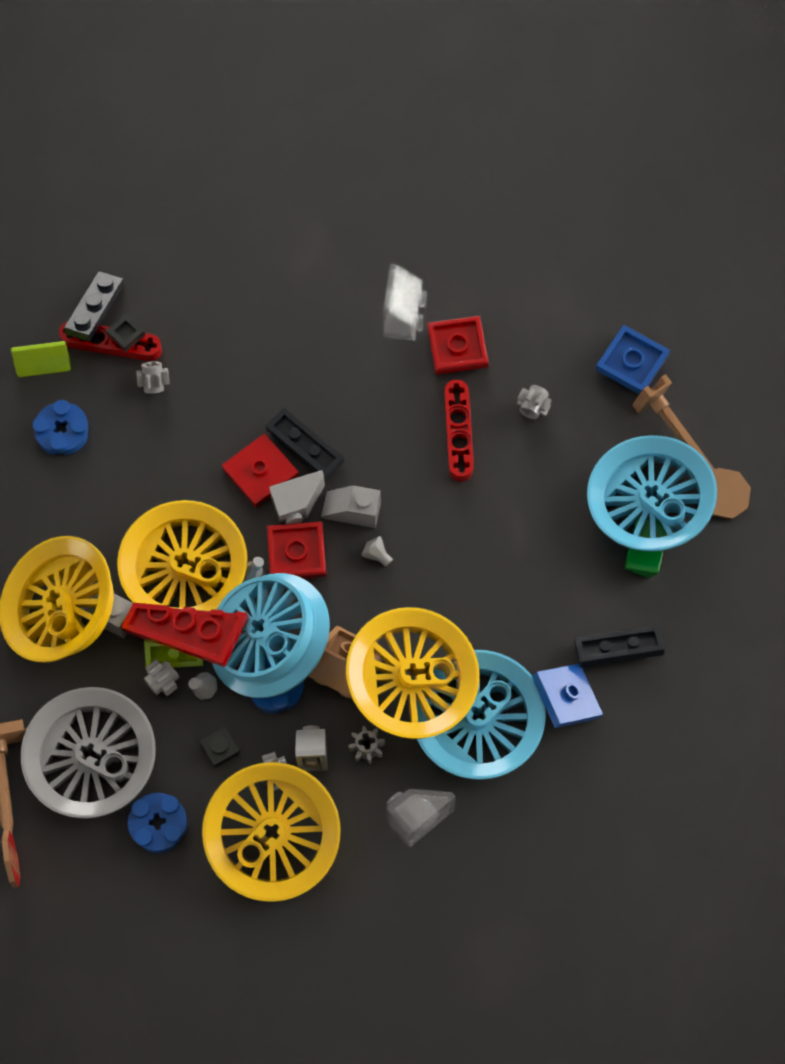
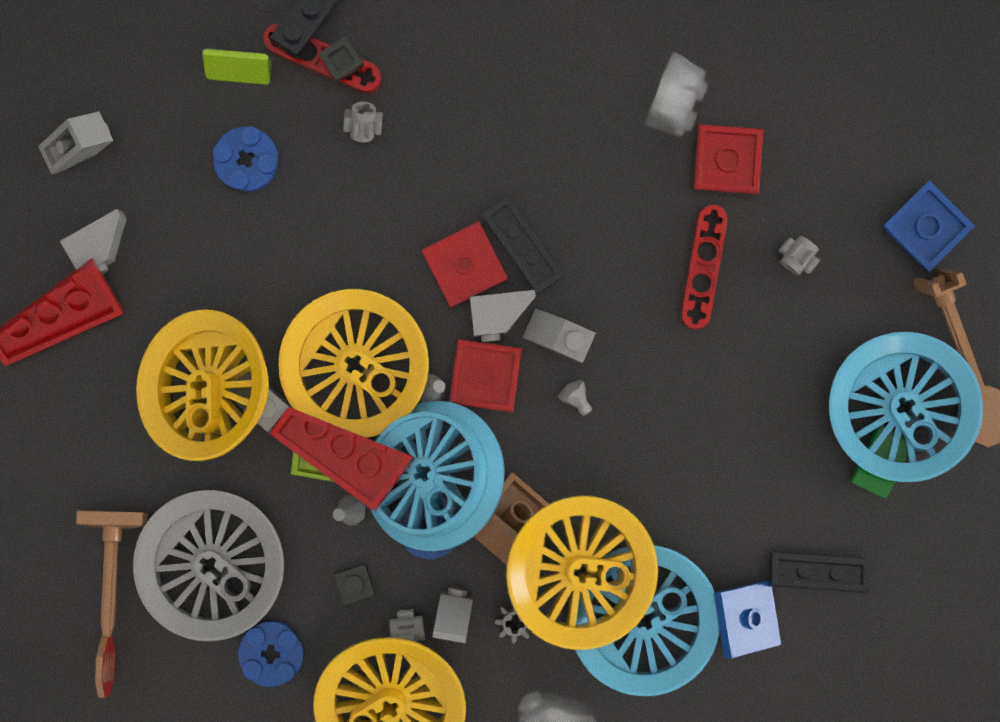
camera: 10 degrees right, 20 degrees up
(161, 677) = (304, 494): light grey gear -> none

